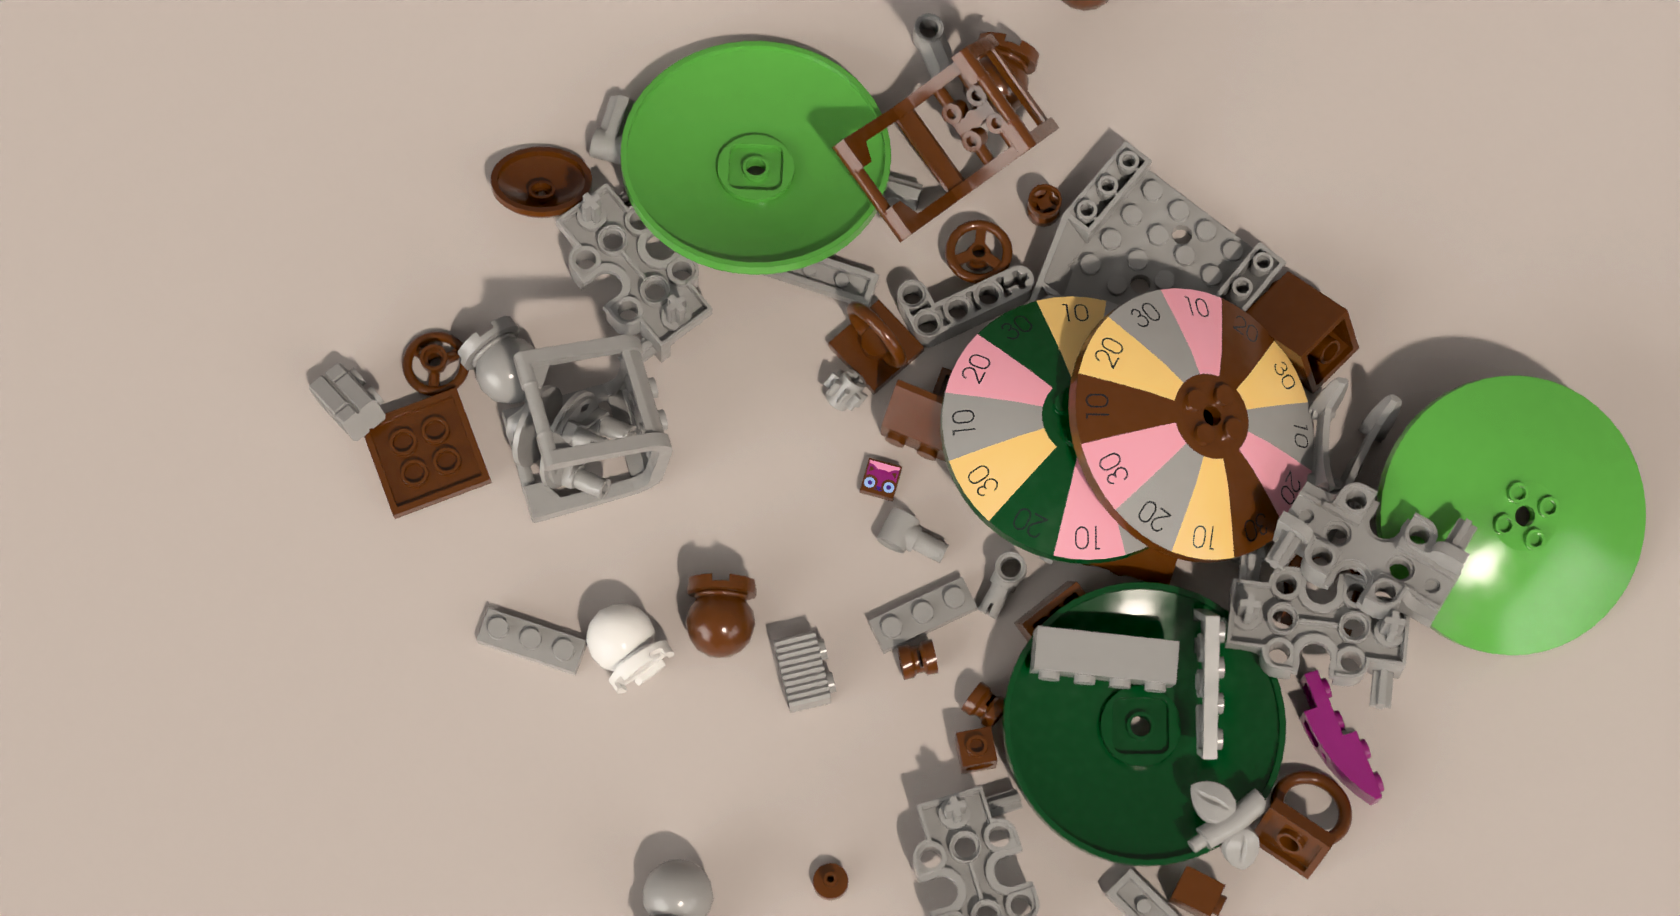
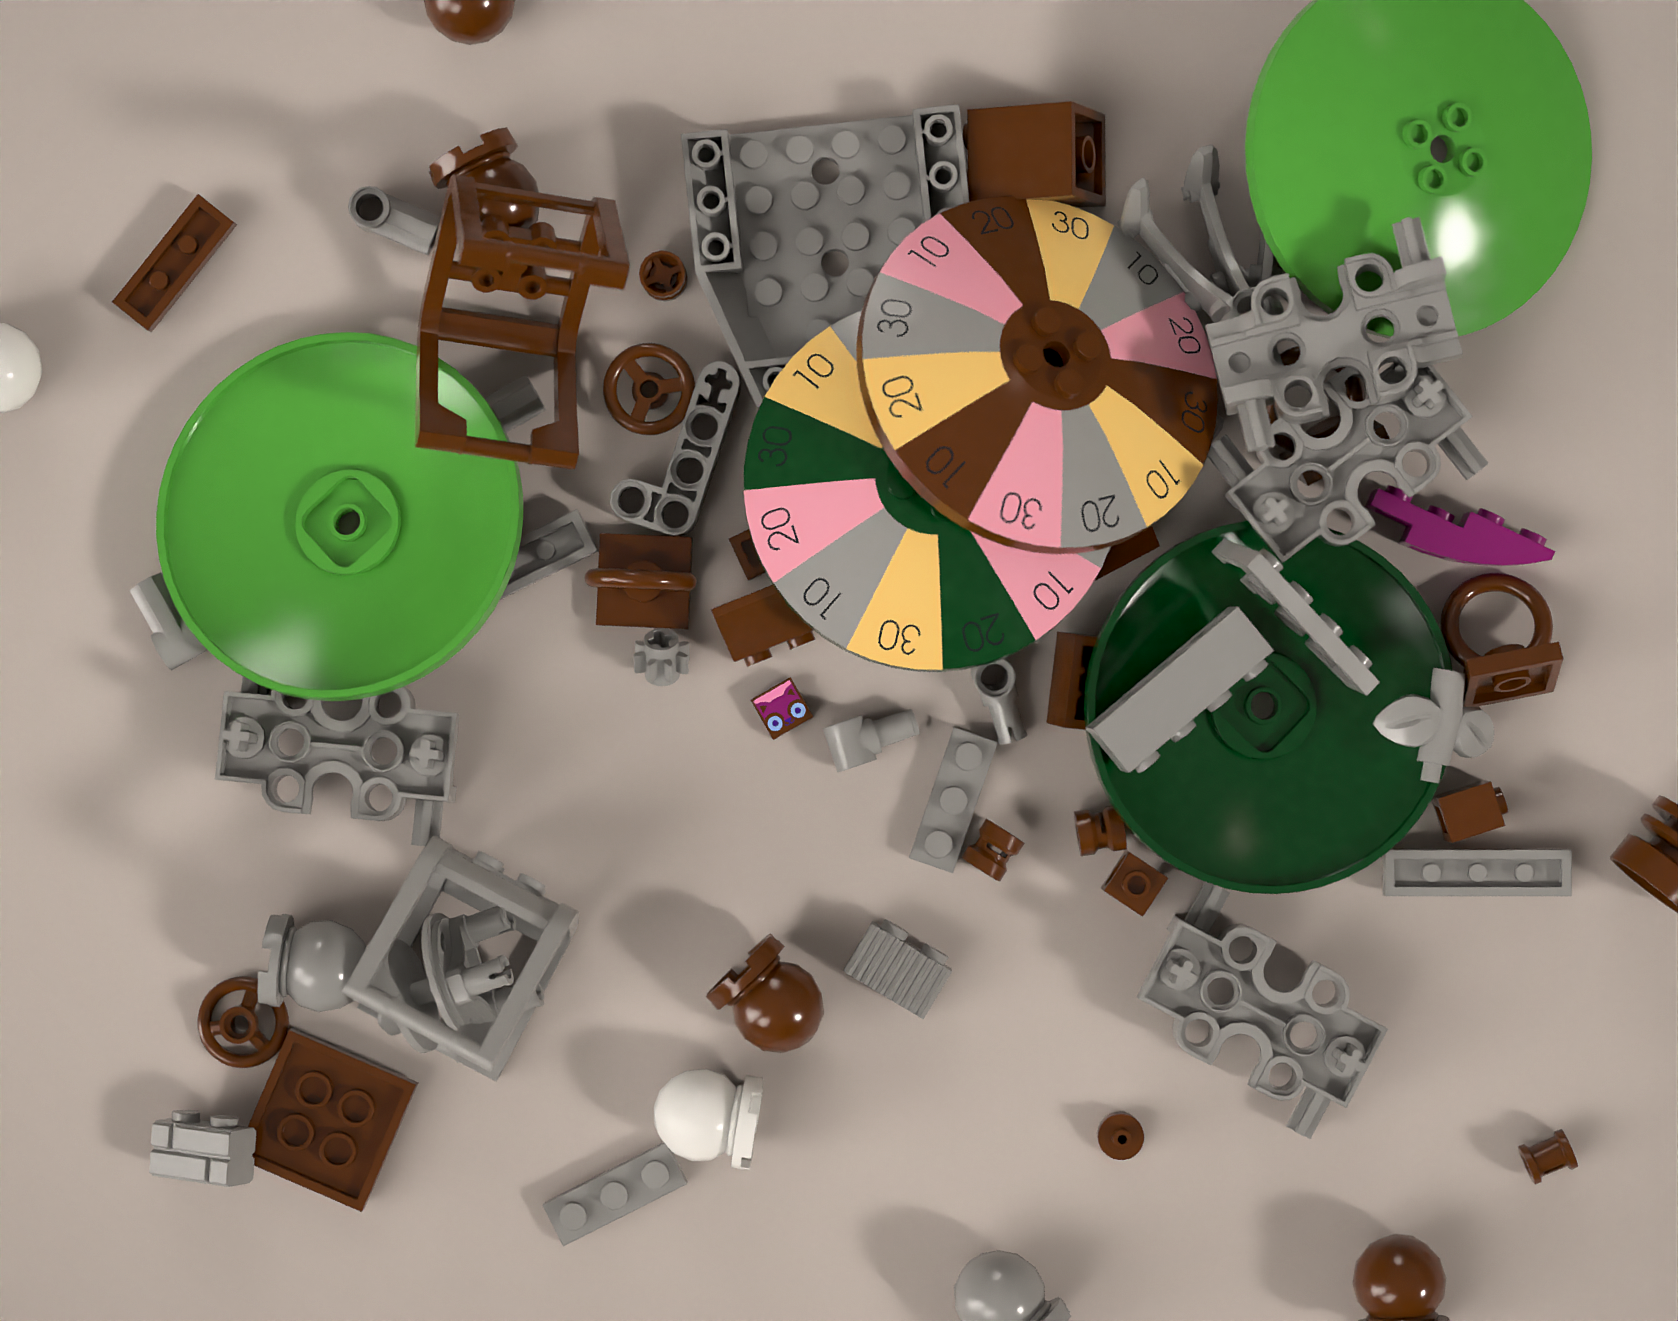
camera: 45 degrees left, 15 degrees up
(540, 181) = (141, 738): reddish brown dish -> none

